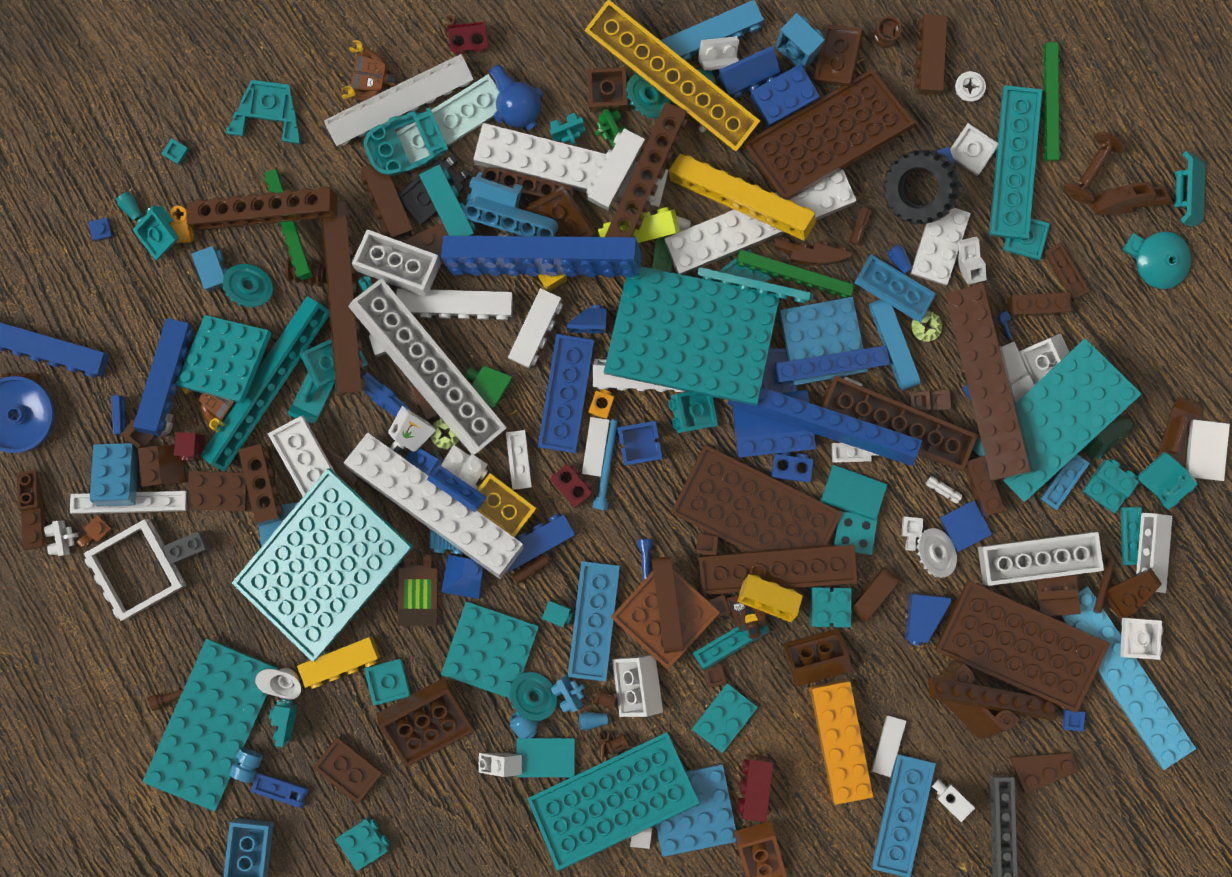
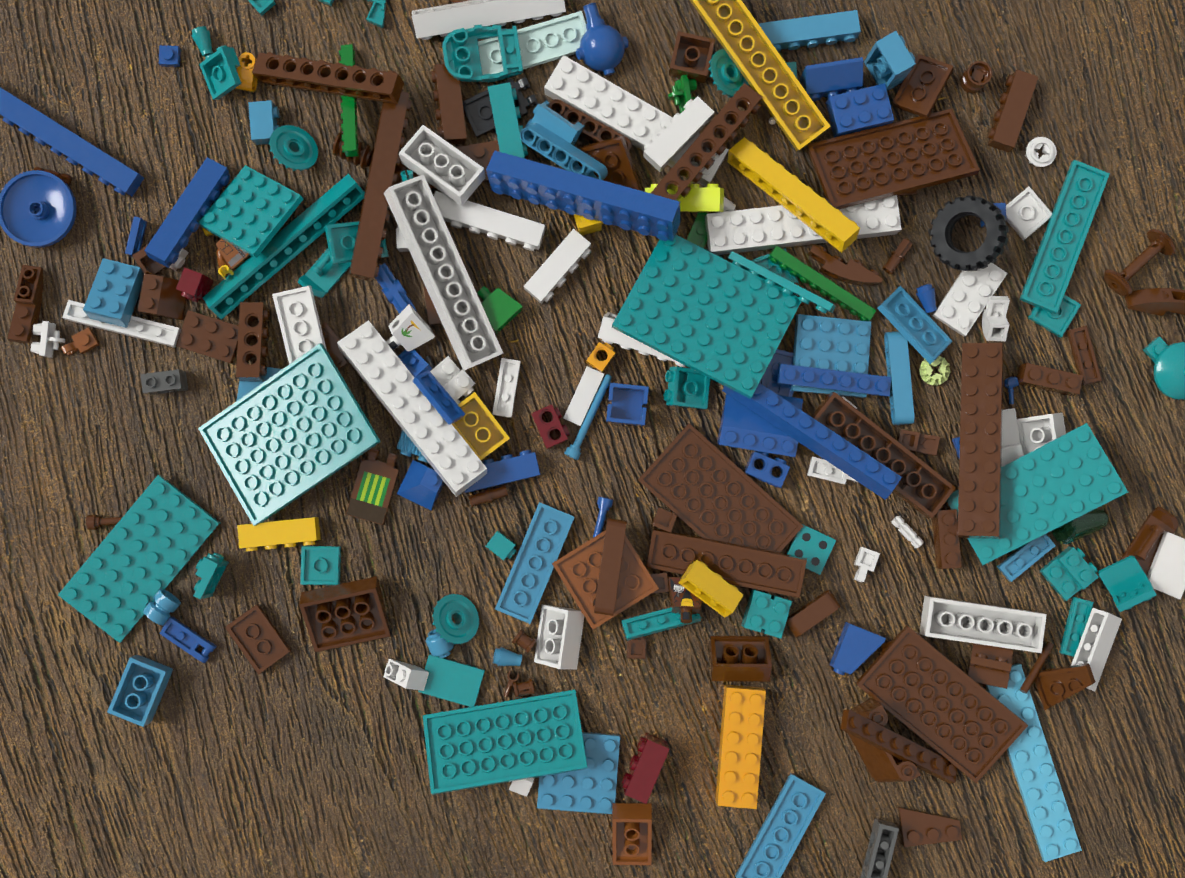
camera: 10 degrees right, 0 degrees up
(156, 544) = (78, 405): white window -> none
(279, 683) = (216, 537): white piece -> none
(363, 843) = (253, 713): teal plate -> none
(444, 442) = (440, 351): yellowish green gear -> none
(489, 649) = (426, 561): teal plate -> none
(566, 393) = (569, 337): blue plate -> none
(567, 131) = (642, 86): teal hips -> none
(571, 692) = (493, 624): dark azure hips -> none
(589, 321) = (611, 274): blue slope -> none
(718, 52) = (807, 50): white bracket -> none
(724, 718) = (634, 691): teal plate -> none
(853, 492) = (819, 510): teal tile -> none
(888, 745) = (784, 763): white tile -> none
(937, 552) = (884, 590): white gear -> none
(958, 806) = (837, 839): white torso -> none
(965, 525) = (918, 572): blue tile -> none
(1051, 102) = (1114, 189): green piece -> none
(1073, 720) = (970, 789): blue plate -> none
(1141, 638) = (1059, 729): white plate -> none

